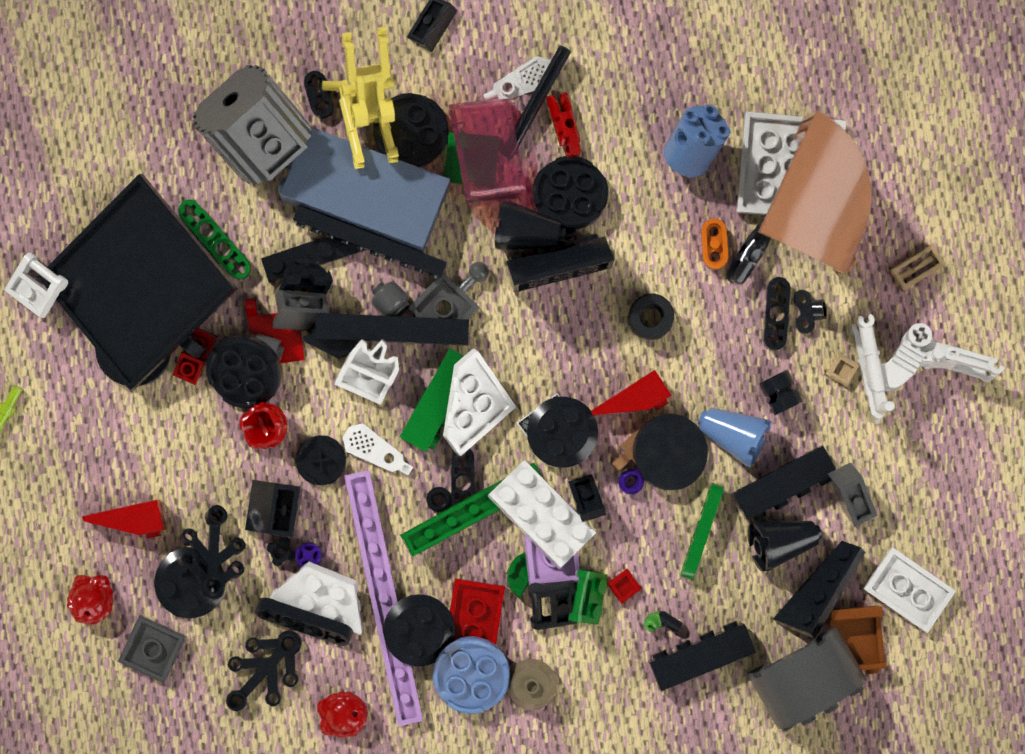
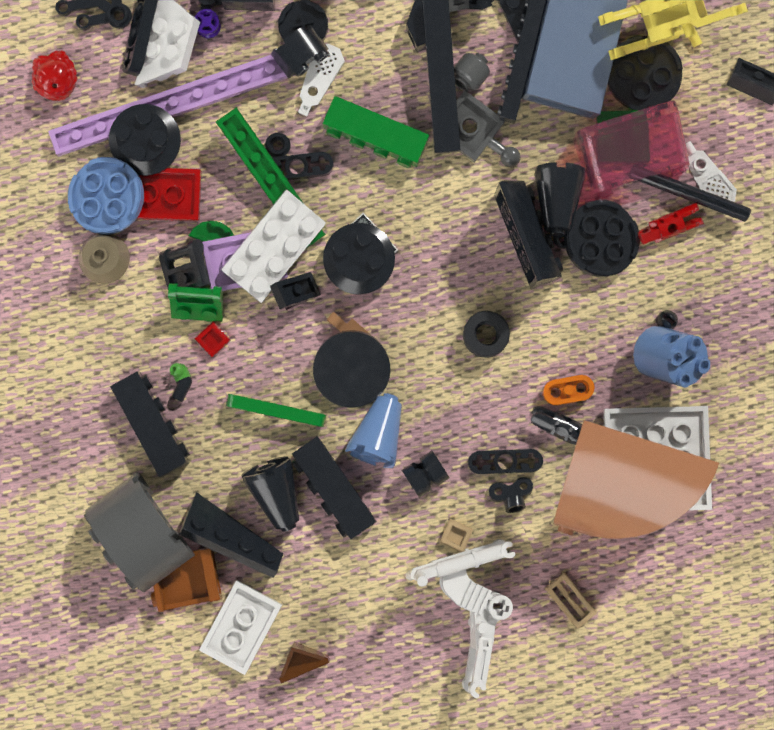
camera: 85 degrees right, 0 degrees up
(350, 465) = (299, 50): none -> black cylinder
(368, 371) = (395, 57): white plate -> none
(474, 403) = (377, 165): white plate -> none
(631, 473) = (317, 326): dark purple plate -> none
(639, 396) = (404, 331): red slope -> none
(660, 144) = (664, 323): none -> black hinge
(852, 494) = (329, 557): dark grey panel -> none
(949, 534) = (302, 660): none -> reddish brown slope

